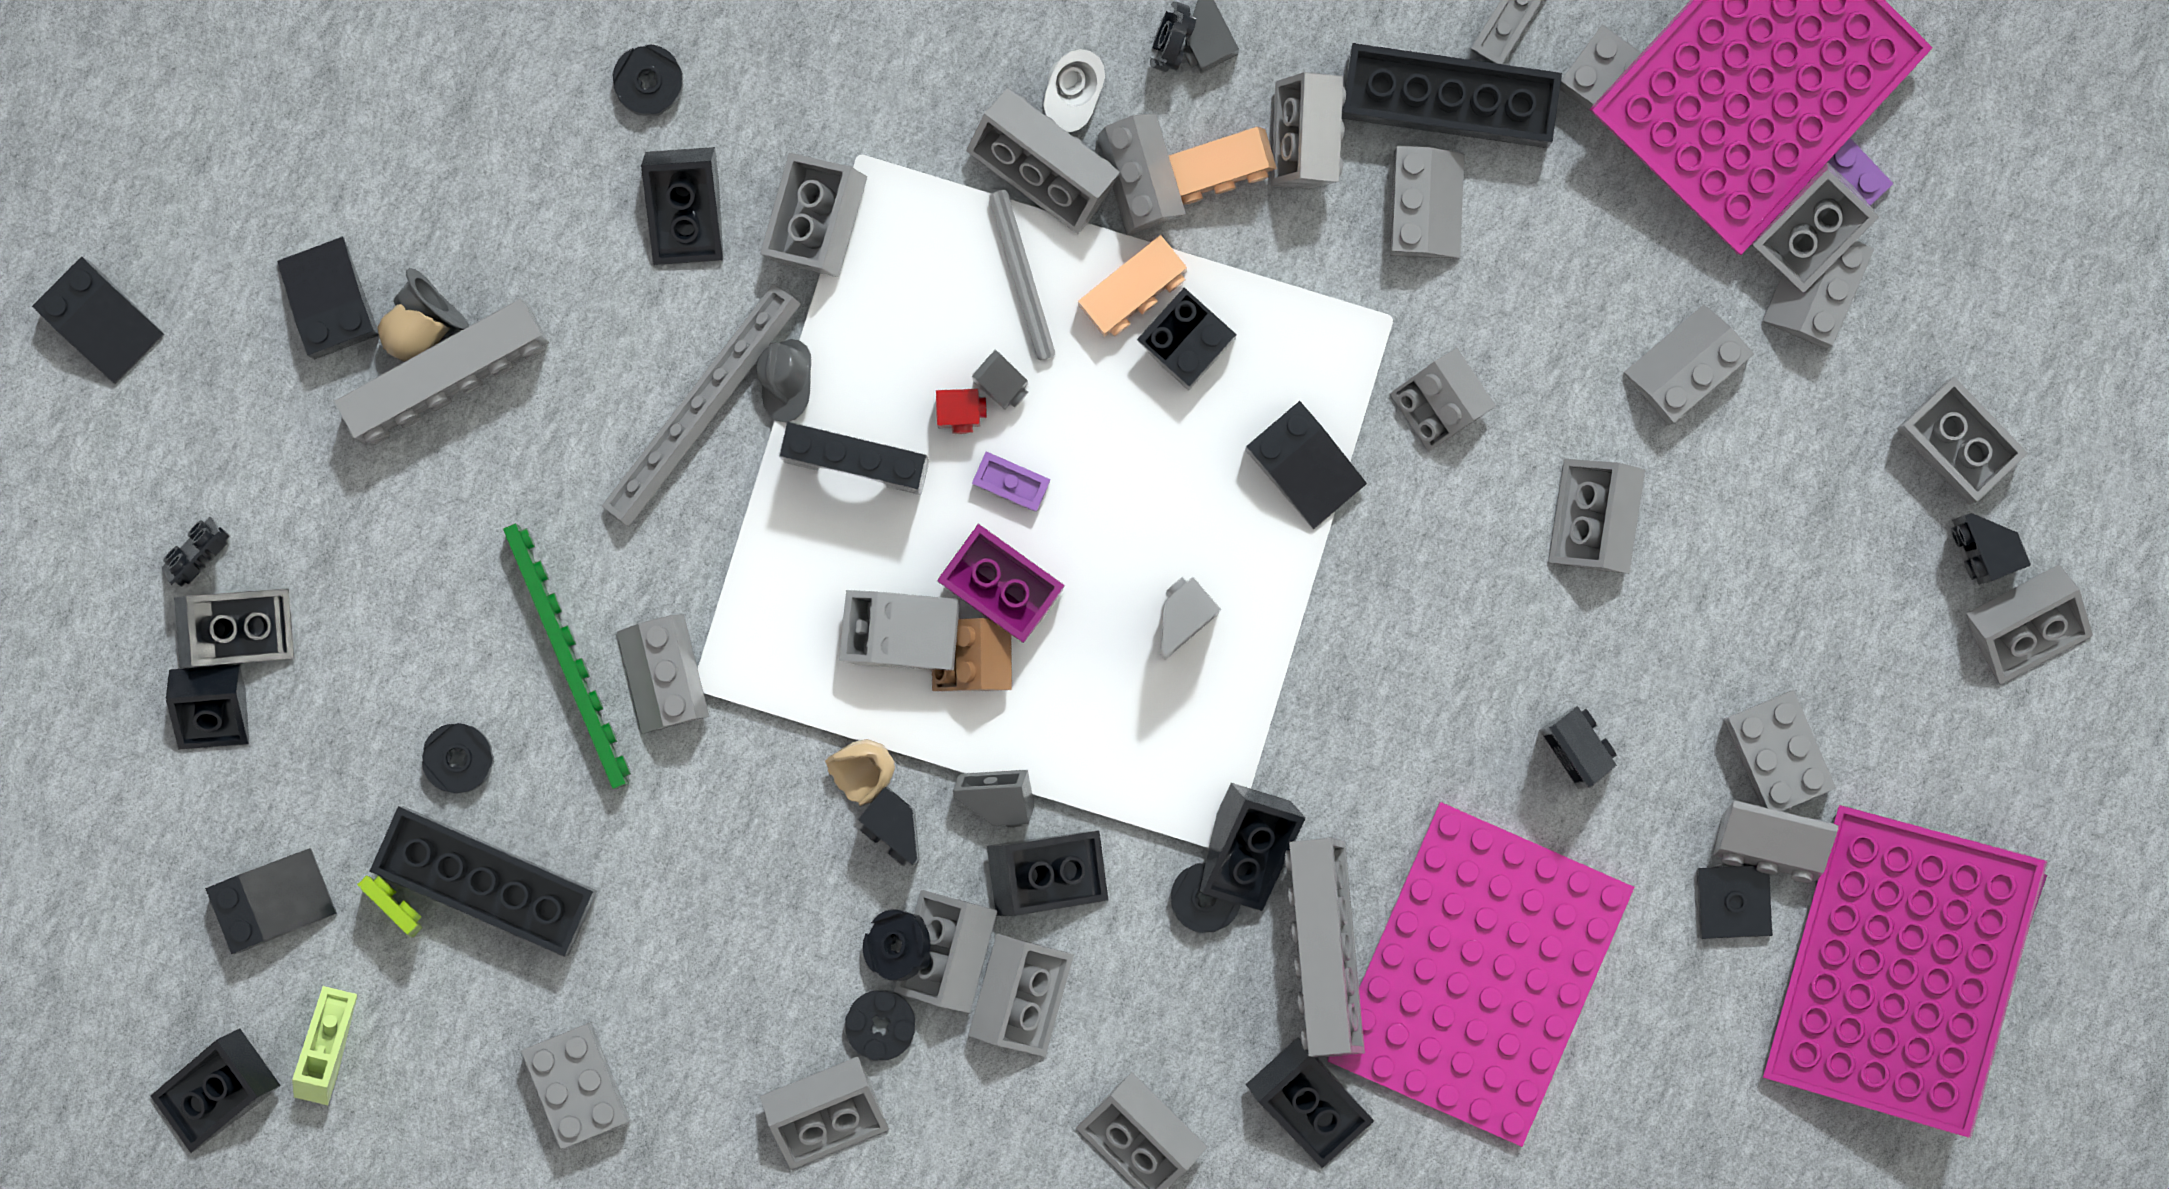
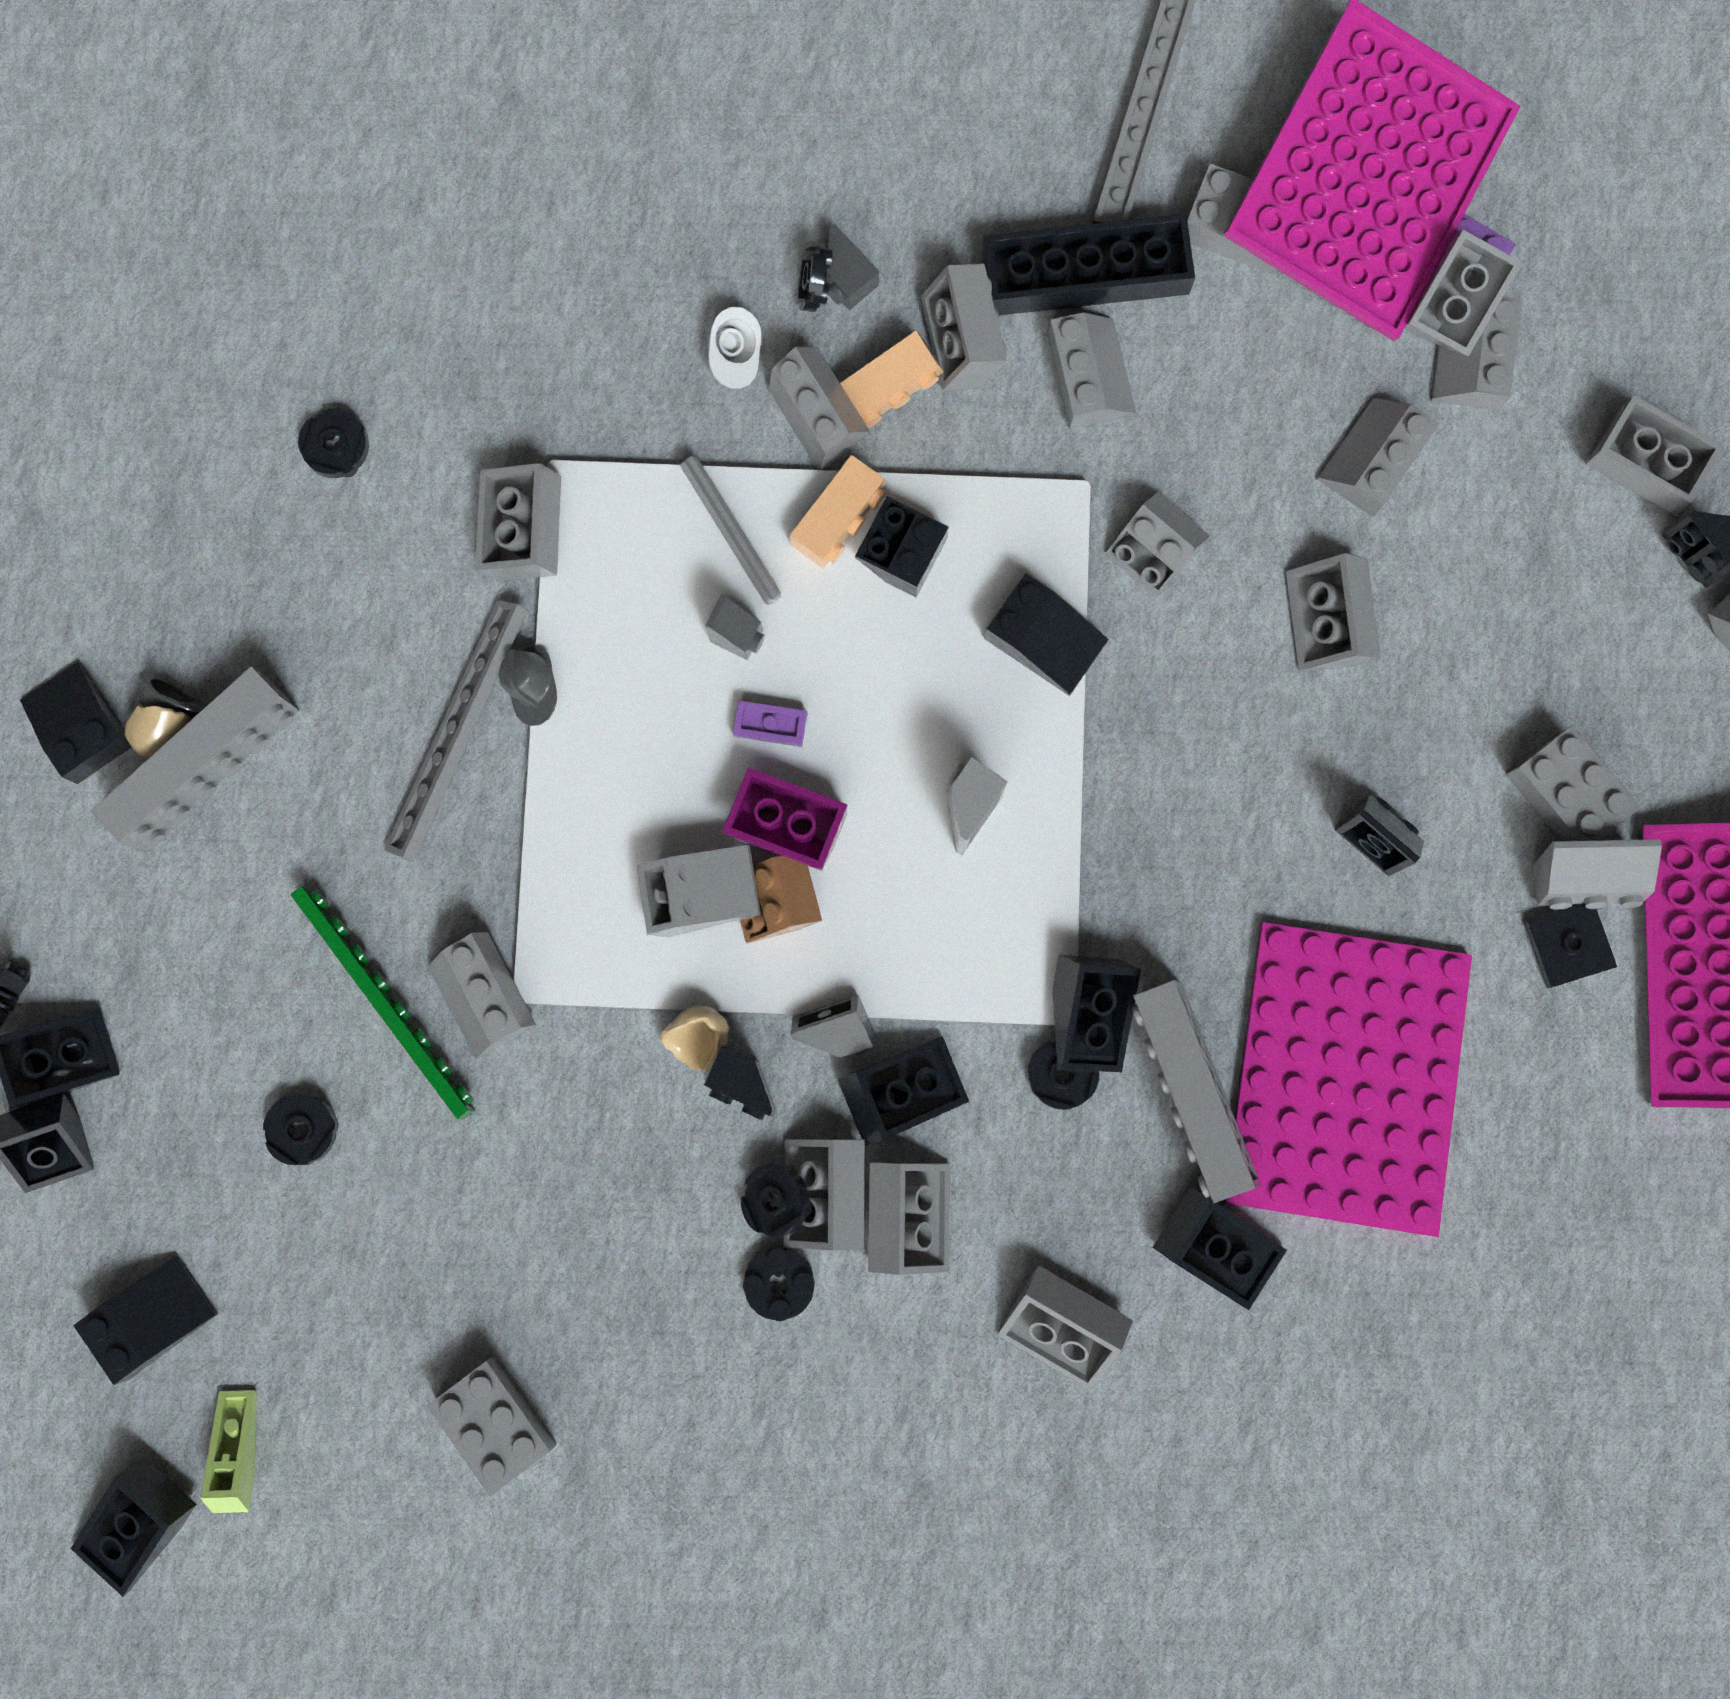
camera: 15 degrees left, 5 degrees down
(382, 894) = (254, 1287): lime plate -> none
(483, 881) = (350, 1244): black brick -> none
(683, 205) = (394, 549): black slope -> none
(824, 1113) = (745, 1387): light grey slope -> none
(837, 452) = (567, 735): black arch -> none
(960, 409) = (703, 667): red brick -> none
(1042, 160) = (722, 416): light grey brick -> none

